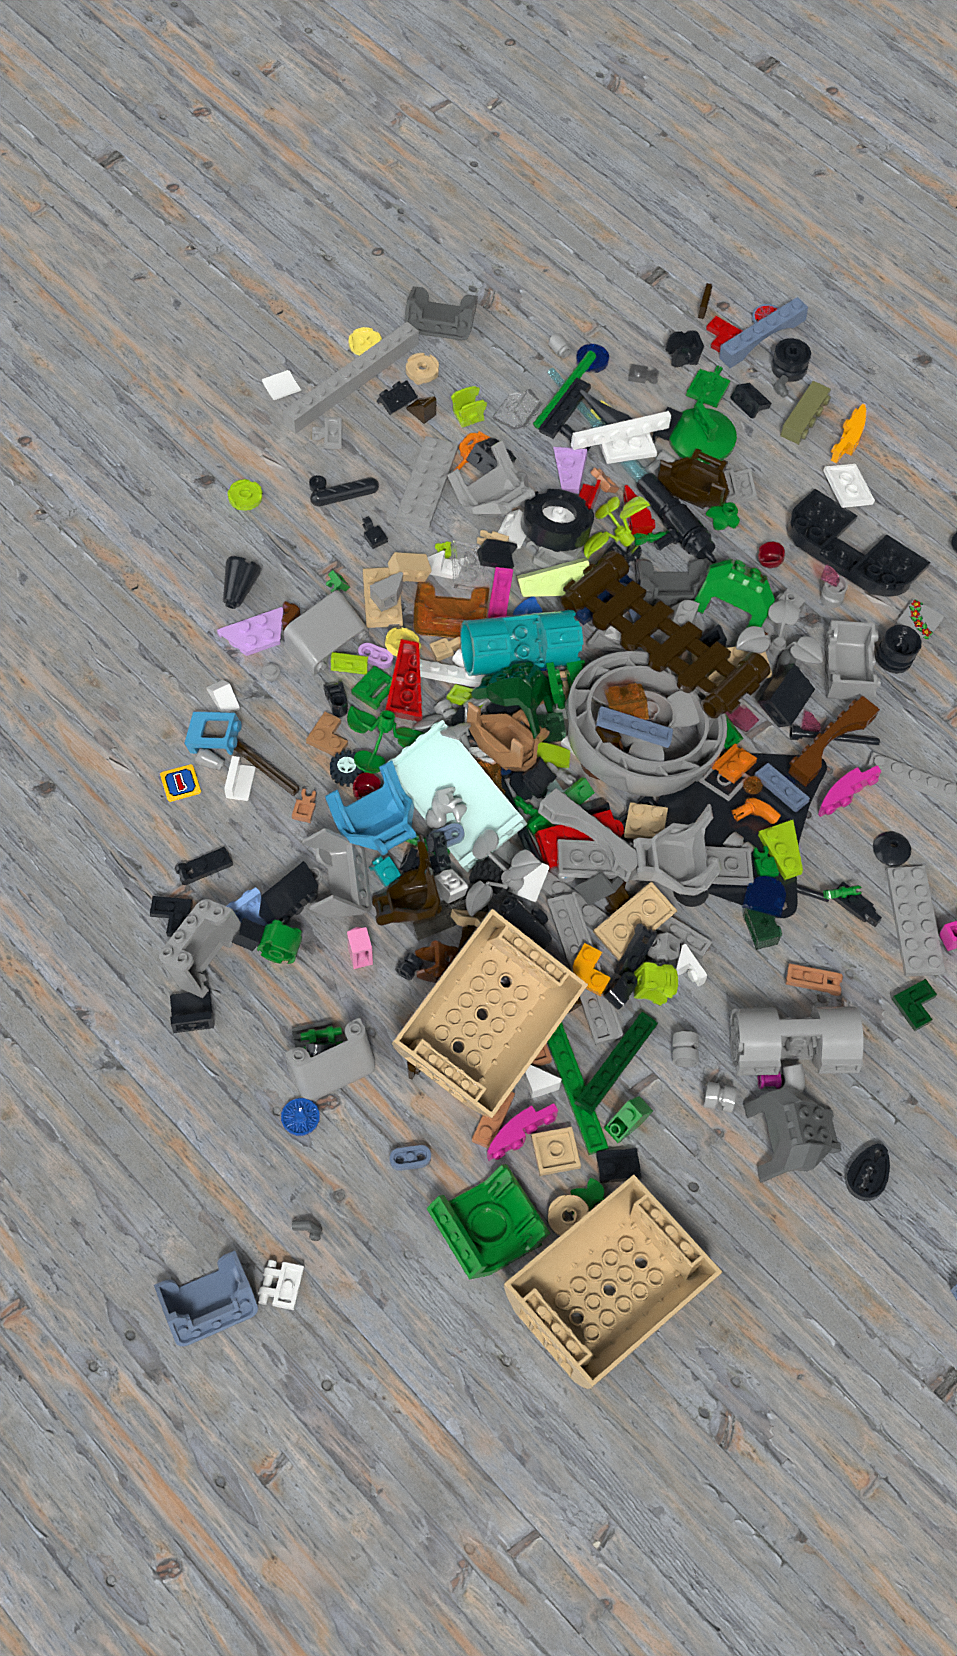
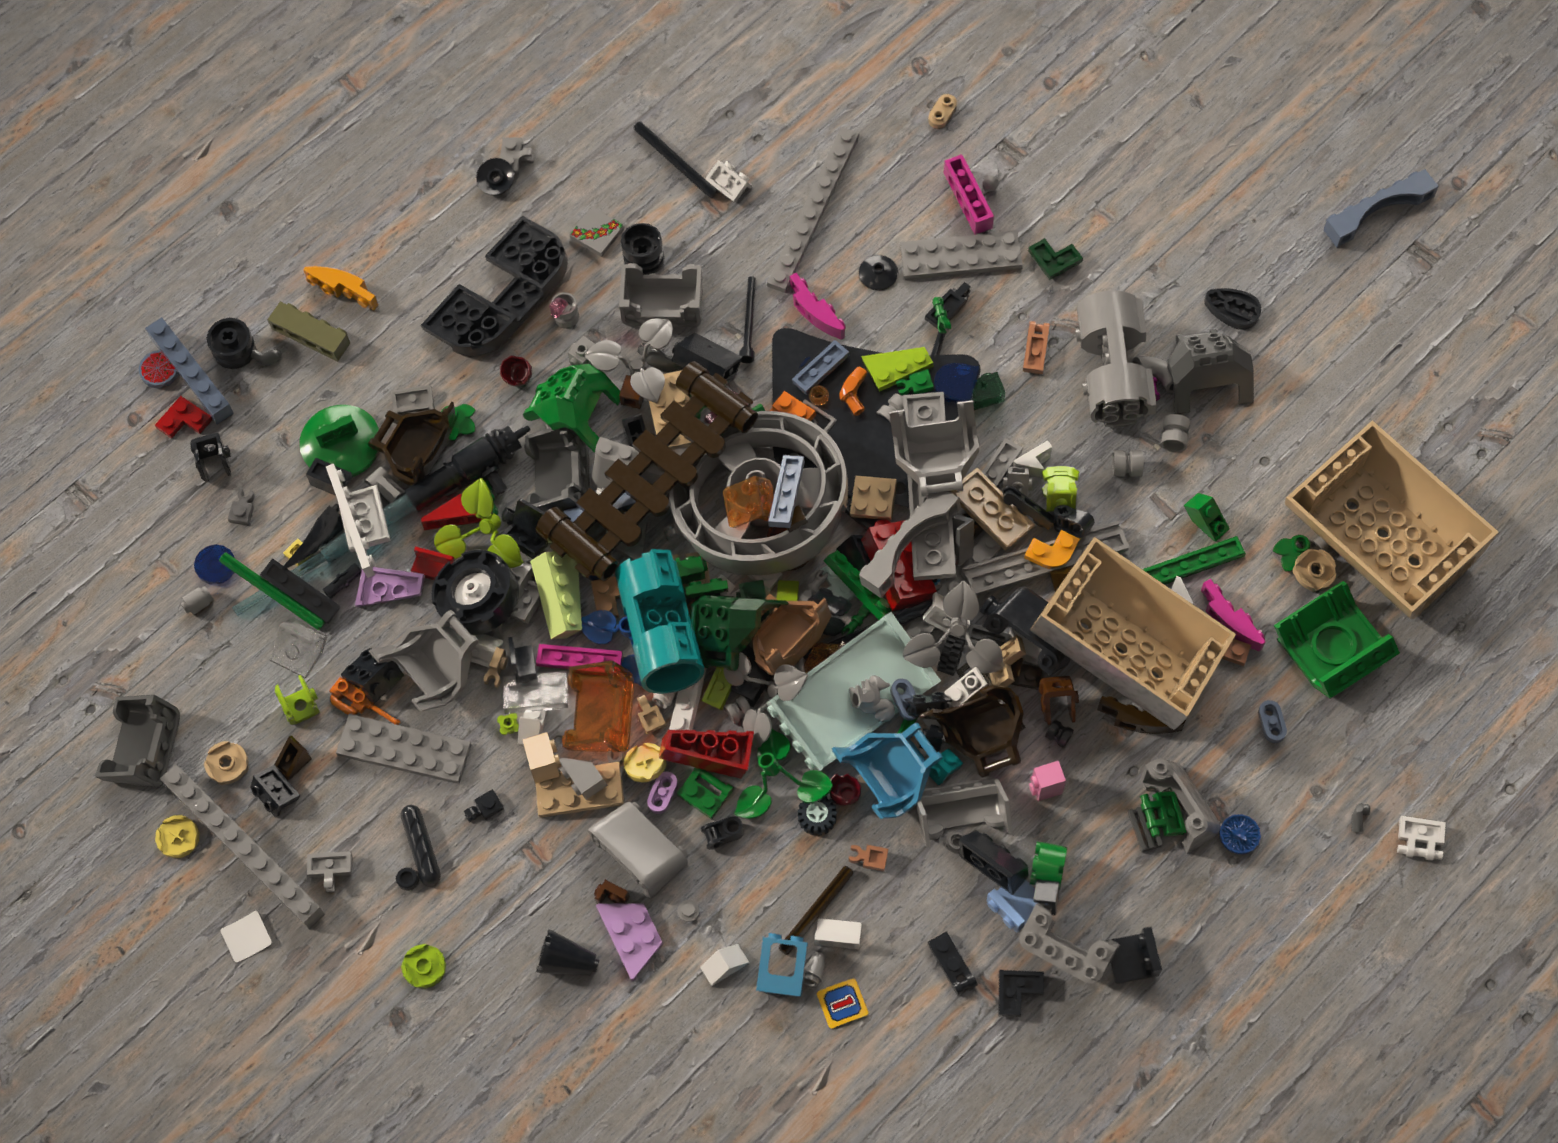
camera: 85 degrees left, 5 degrees up
(208, 1302) = (1448, 907): sand blue windscreen -> none
(318, 1047) = (1175, 807): black plate -> none
(323, 735) = (773, 846): medium nougat plate -> none
(338, 582) = (558, 840): green tile -> none
(349, 663) = (676, 812): lime plate -> none
(555, 1151) = (1248, 584): tan plate -> none
(607, 484) = (407, 547): nougat plate -> none
(616, 1063) = (1149, 527): dark green plate -> none
(618, 1165) = (1253, 527): black plate -> none
(705, 301) = (131, 436): dark brown tile -> none
(708, 387) = (268, 434): green plate -> none
(749, 399) = (287, 389): black bracket -> none
(810, 722) = (731, 341): clear pink tile -> none
(848, 485) = (415, 291): white tile -> none
(857, 717) = (791, 339): reddish brown arch -> none

